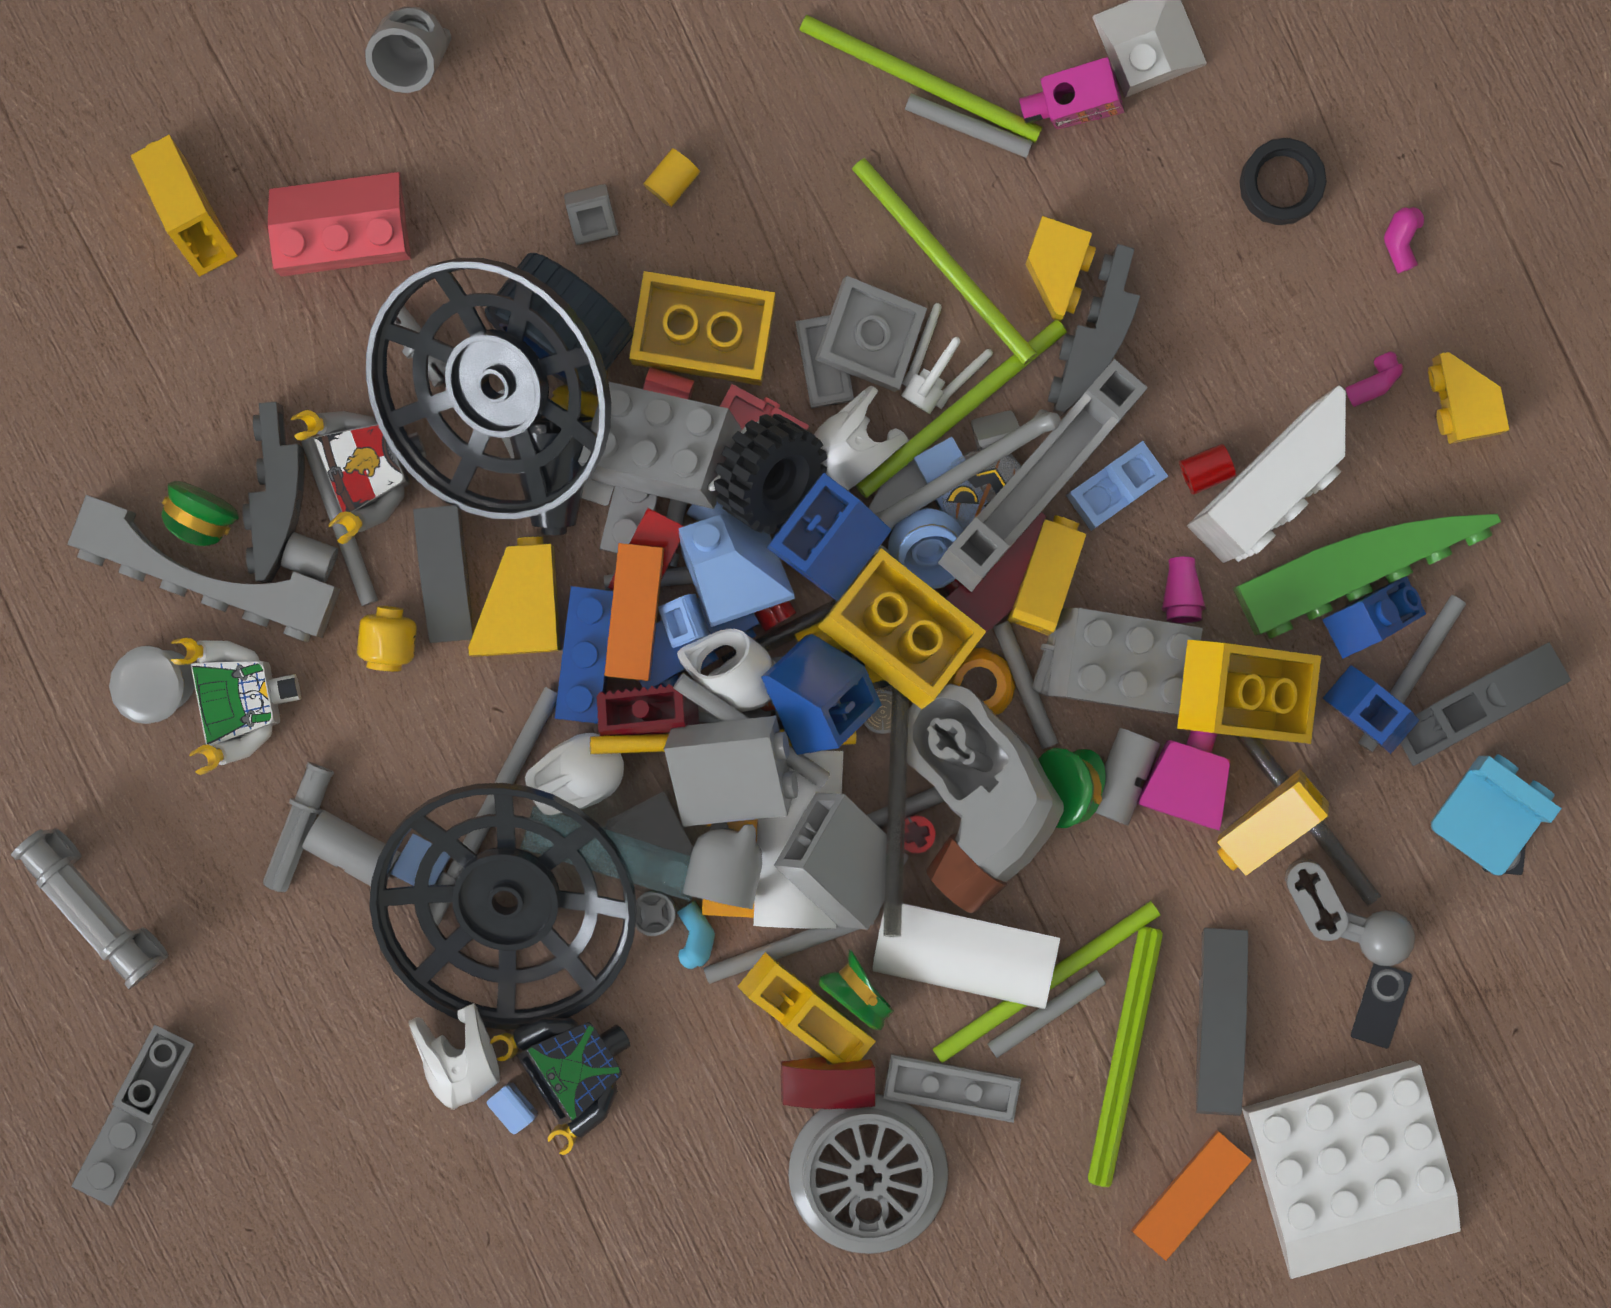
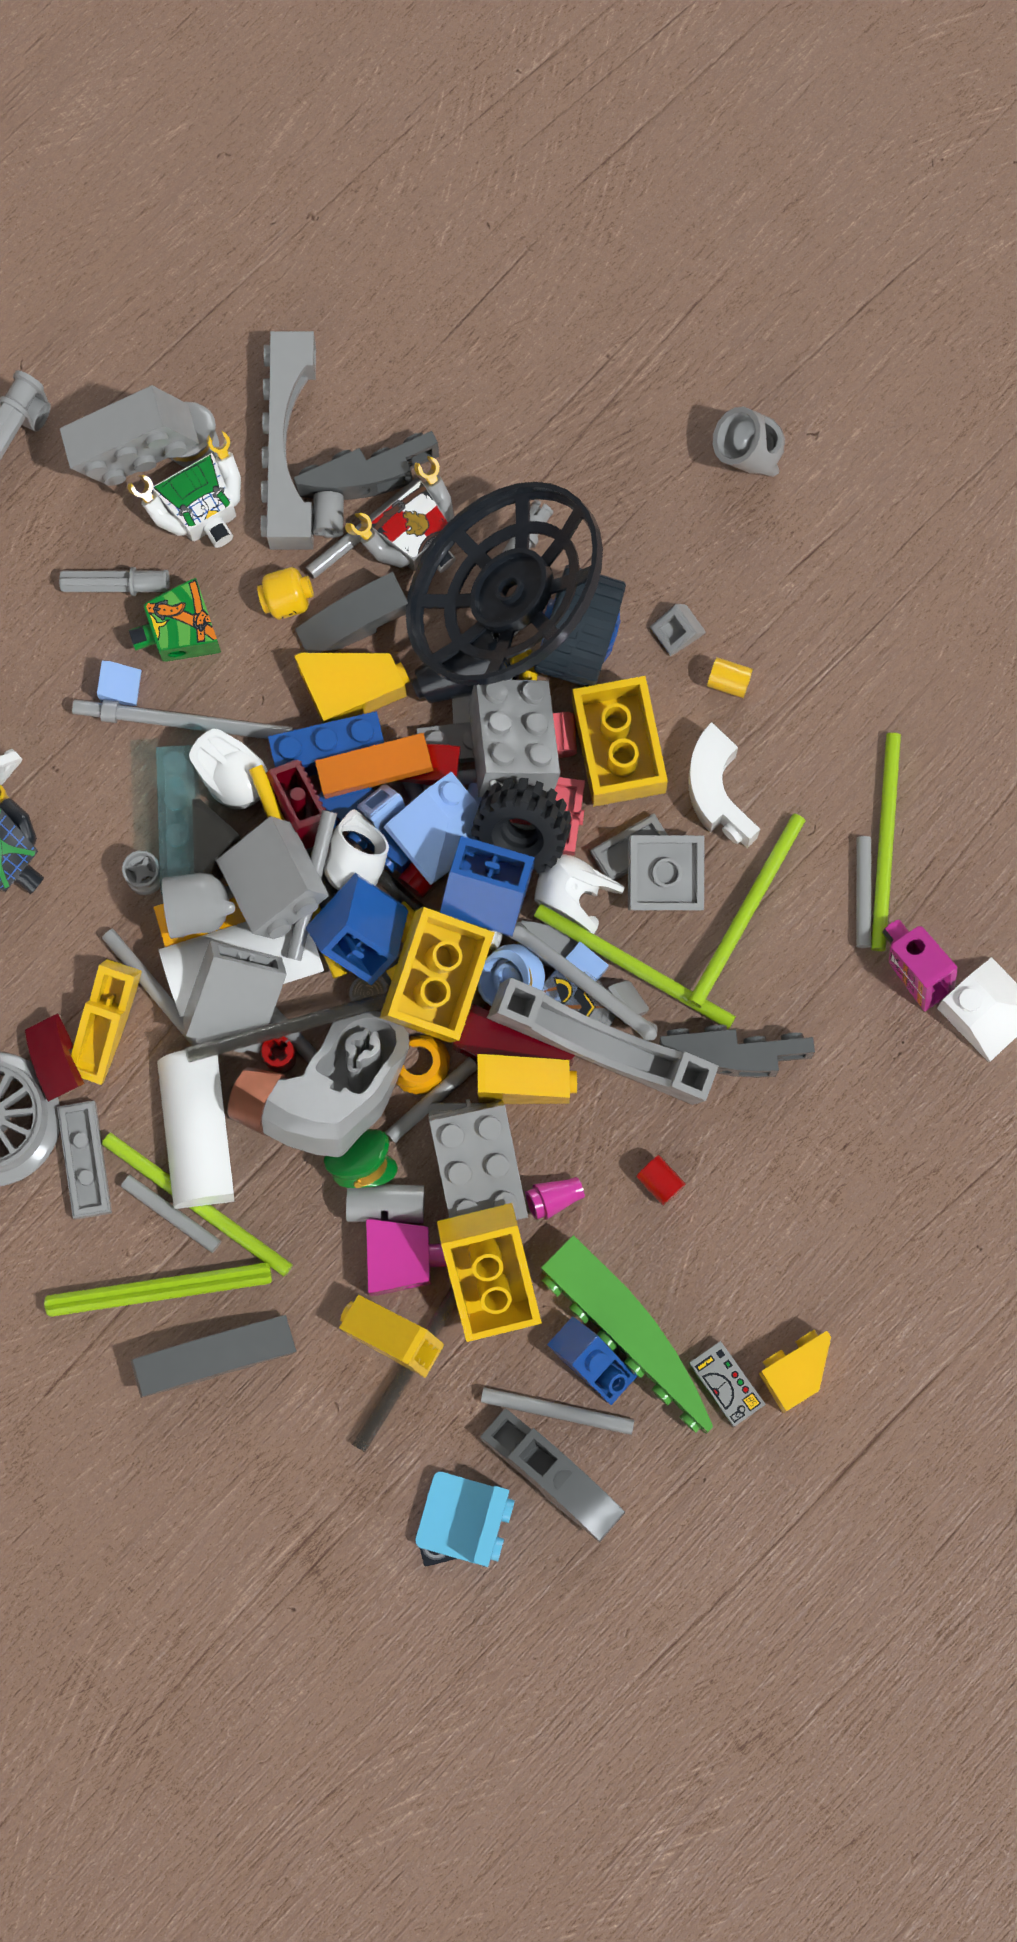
camera: 70 degrees right, 10 degrees down
(140, 750) = (129, 436): none -> light grey brick
(183, 206) = (562, 325): yellow slope -> none
(196, 514) = (329, 417): green piece -> none
(337, 224) = (593, 443): coral slope -> none
(345, 846) = (110, 625): light grey pin -> none
(378, 774) = (177, 625): none -> torso
(496, 925) = (93, 742): black dish -> none
(700, 937) = (134, 916): medium azure arm -> none
(792, 252) = (706, 790): none -> white arch
(856, 993) = (133, 1052): green piece -> none
(925, 389) = (640, 932): white plant -> none
(1055, 262) = (781, 998): yellow slope -> none
(1116, 485) = (620, 1113): light blue slope -> none
(1191, 1195) = (62, 1385): orange tile -> none
(1276, 482) = (667, 1223): white slope -> none
(1316, 177) = (927, 1128): black tyre -> none
(1353, 1168) = (128, 1510): white slope -> none
(1371, 708) = (512, 1383): blue slope -> none
(1377, 385) = (785, 1294): dark pink arm -> none
(1381, 1005) = (274, 1487): black sticker -> none
(1383, 937) = (330, 1463): light grey beam -> none
(1399, 235) = (912, 1267): dark pink arm -> none
(1449, 482) = (727, 1384): none -> light grey tile

